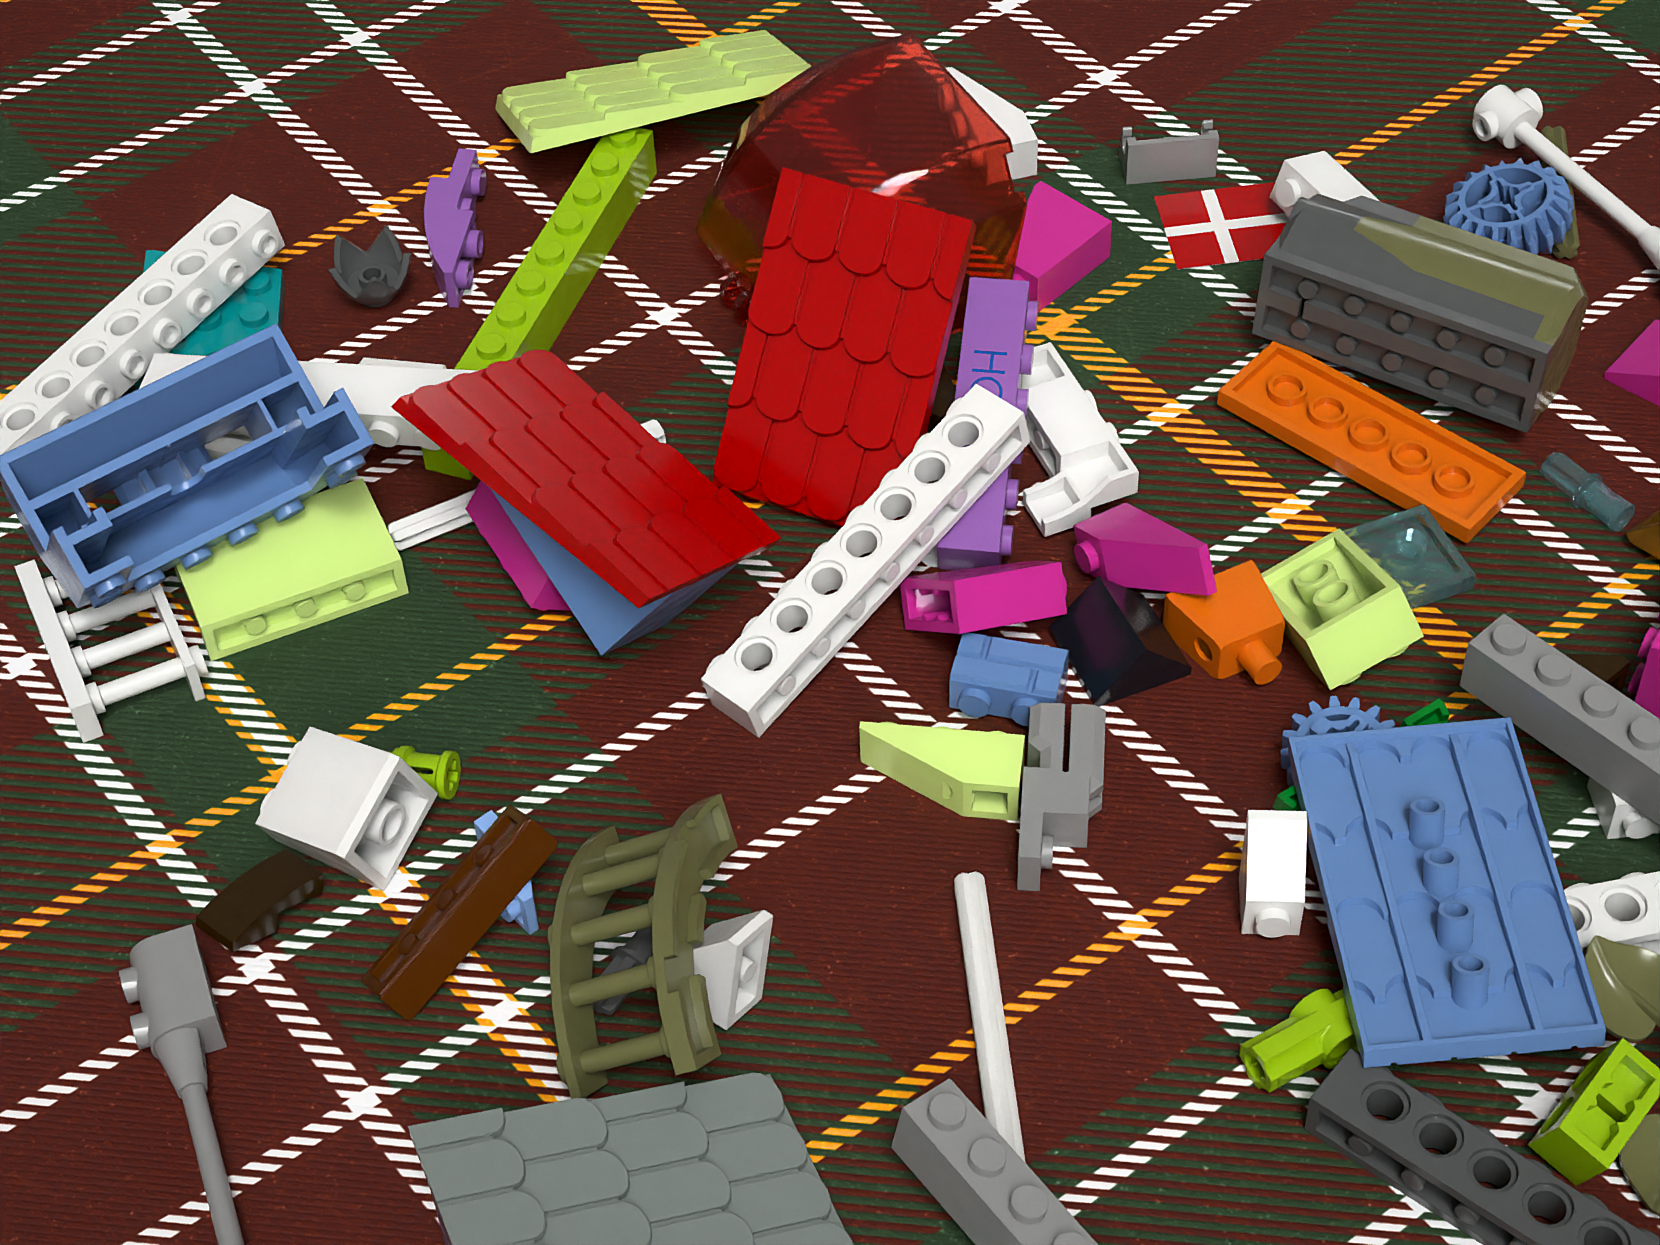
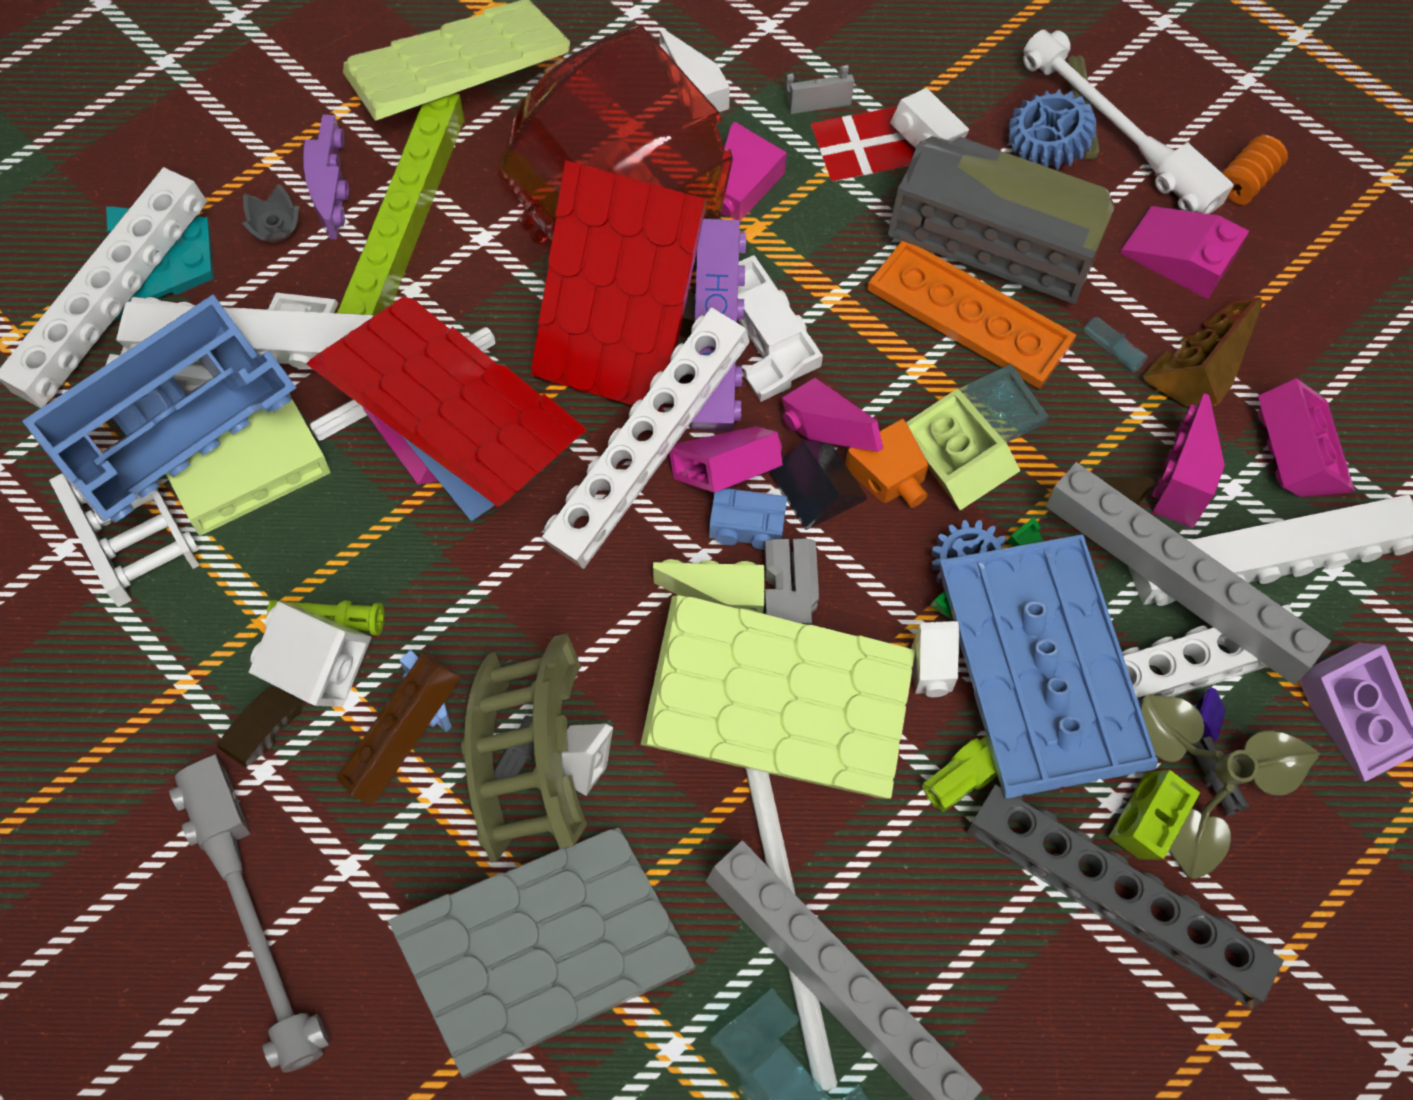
camera: 10 degrees left, 15 degrees up
(1032, 910) = (779, 697): none -> yellowish green piece

